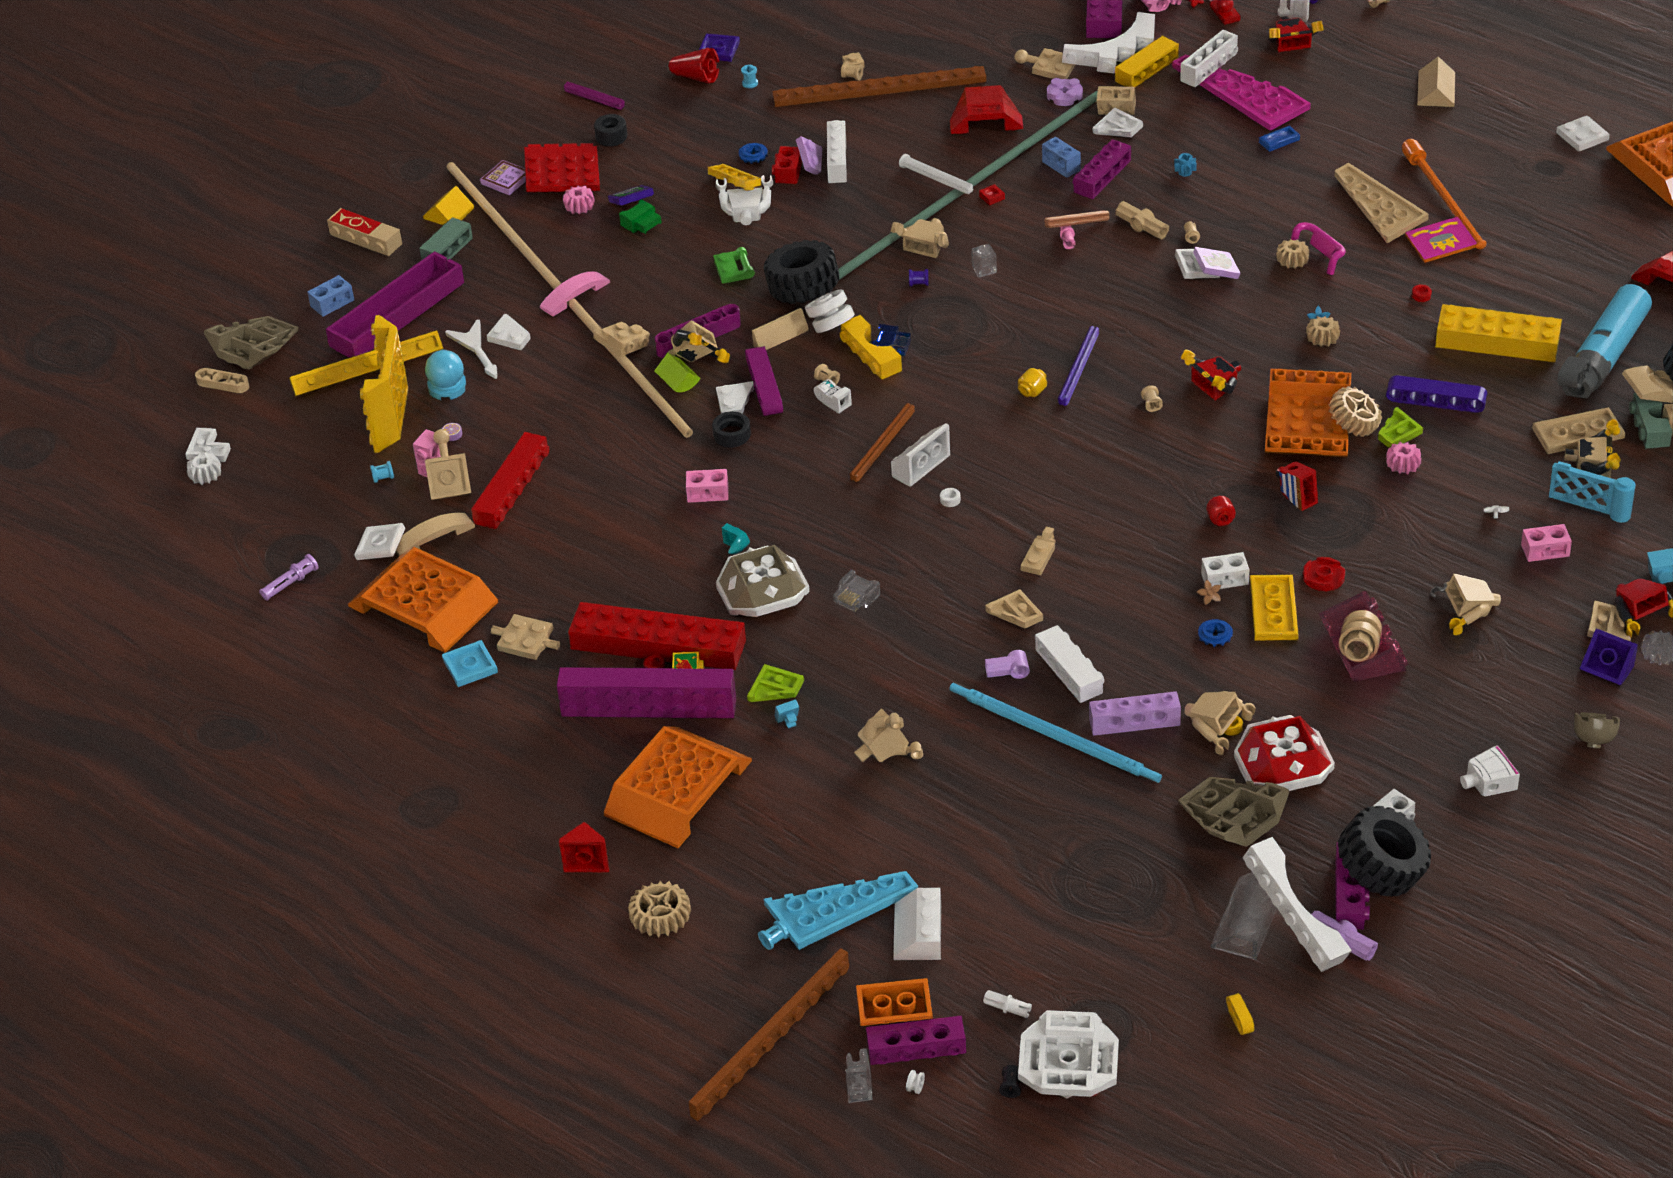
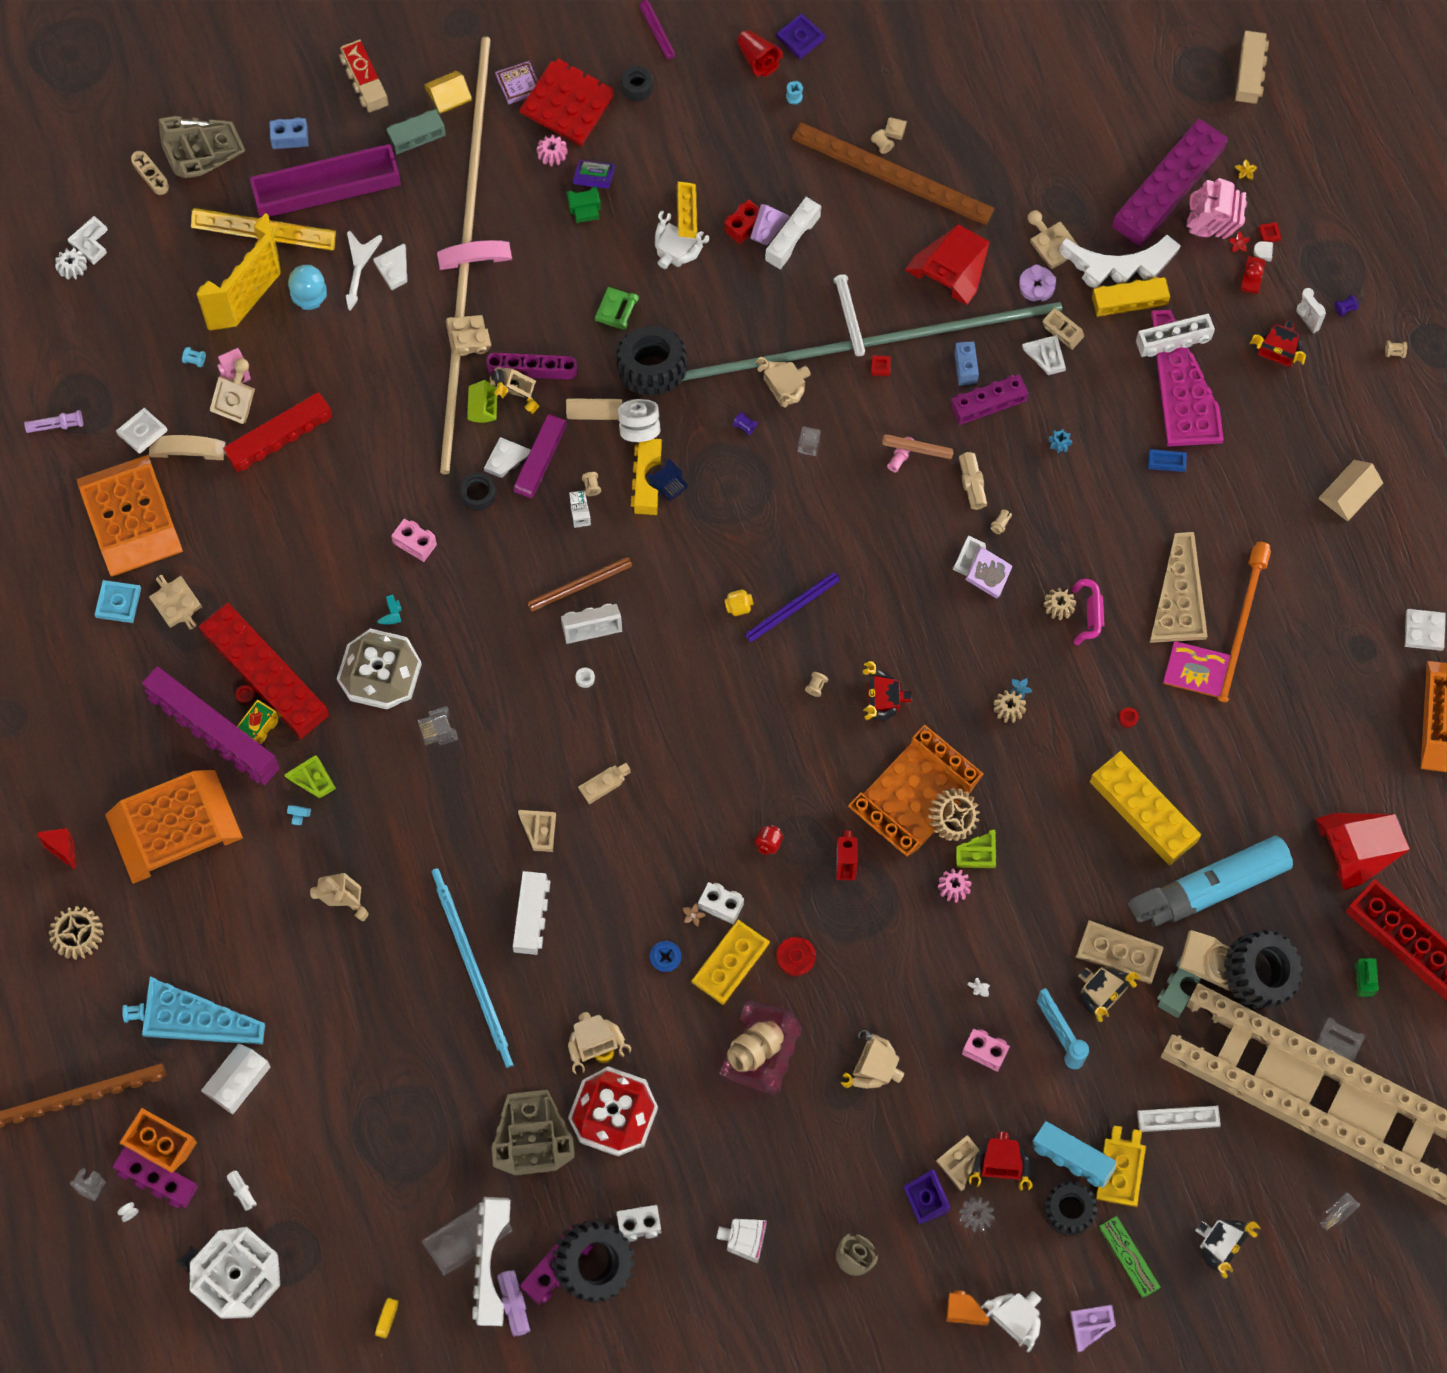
camera: 30 degrees right, 25 degrees up
(454, 431) = (275, 347): lavender tile -> none
(746, 152) = (730, 179): blue gear -> none
(1014, 665) = (492, 882): lavender piece -> none
(1134, 713) = (538, 994): lavender brick -> none
(1436, 394) = (1040, 836): dark purple beam -> none

